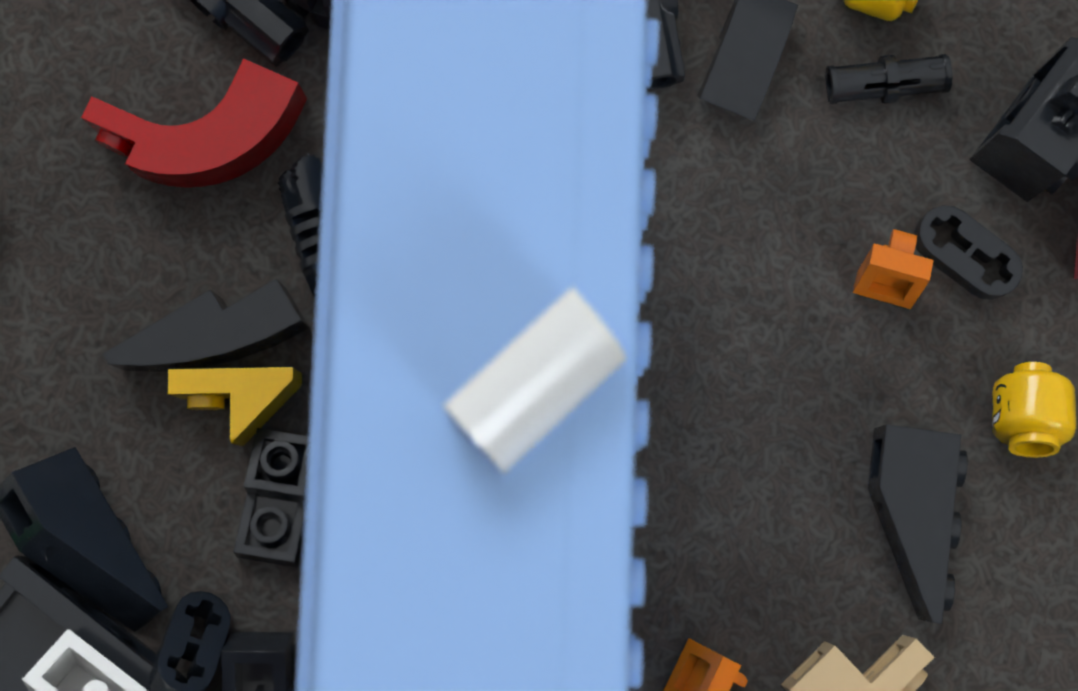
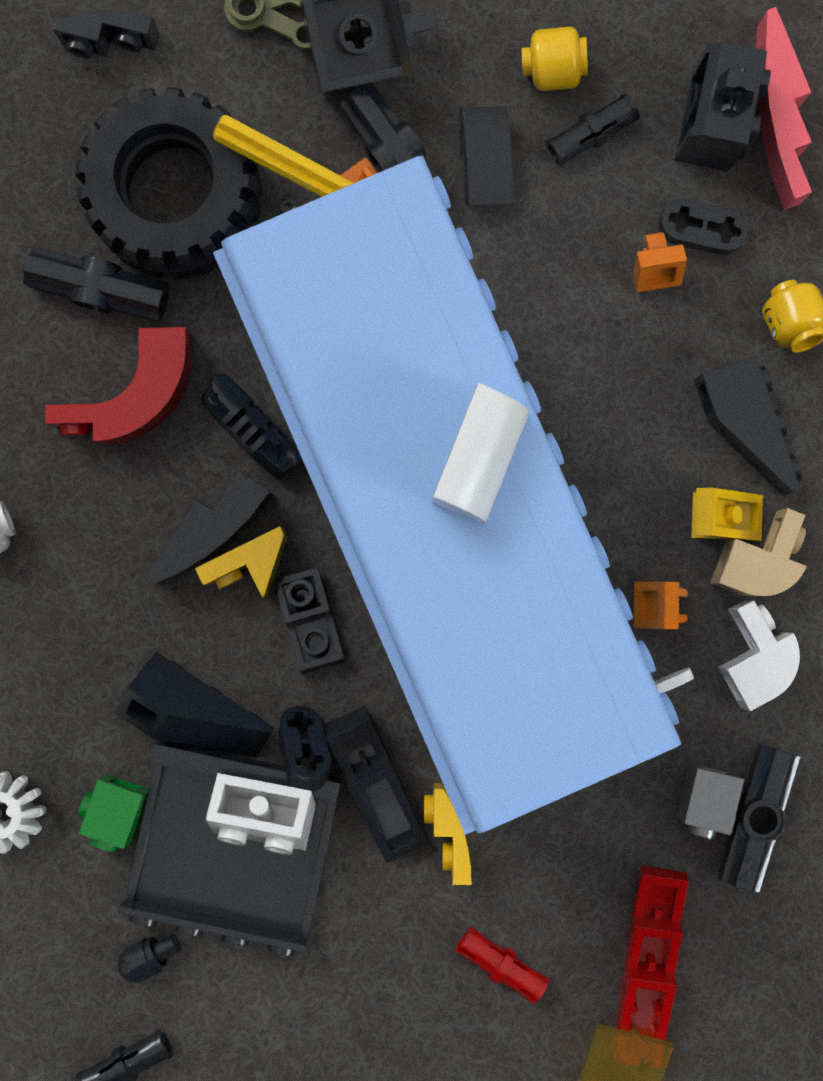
camera: 25 degrees left, 5 degrees up
(839, 611) = (726, 515): none -> yellow slope

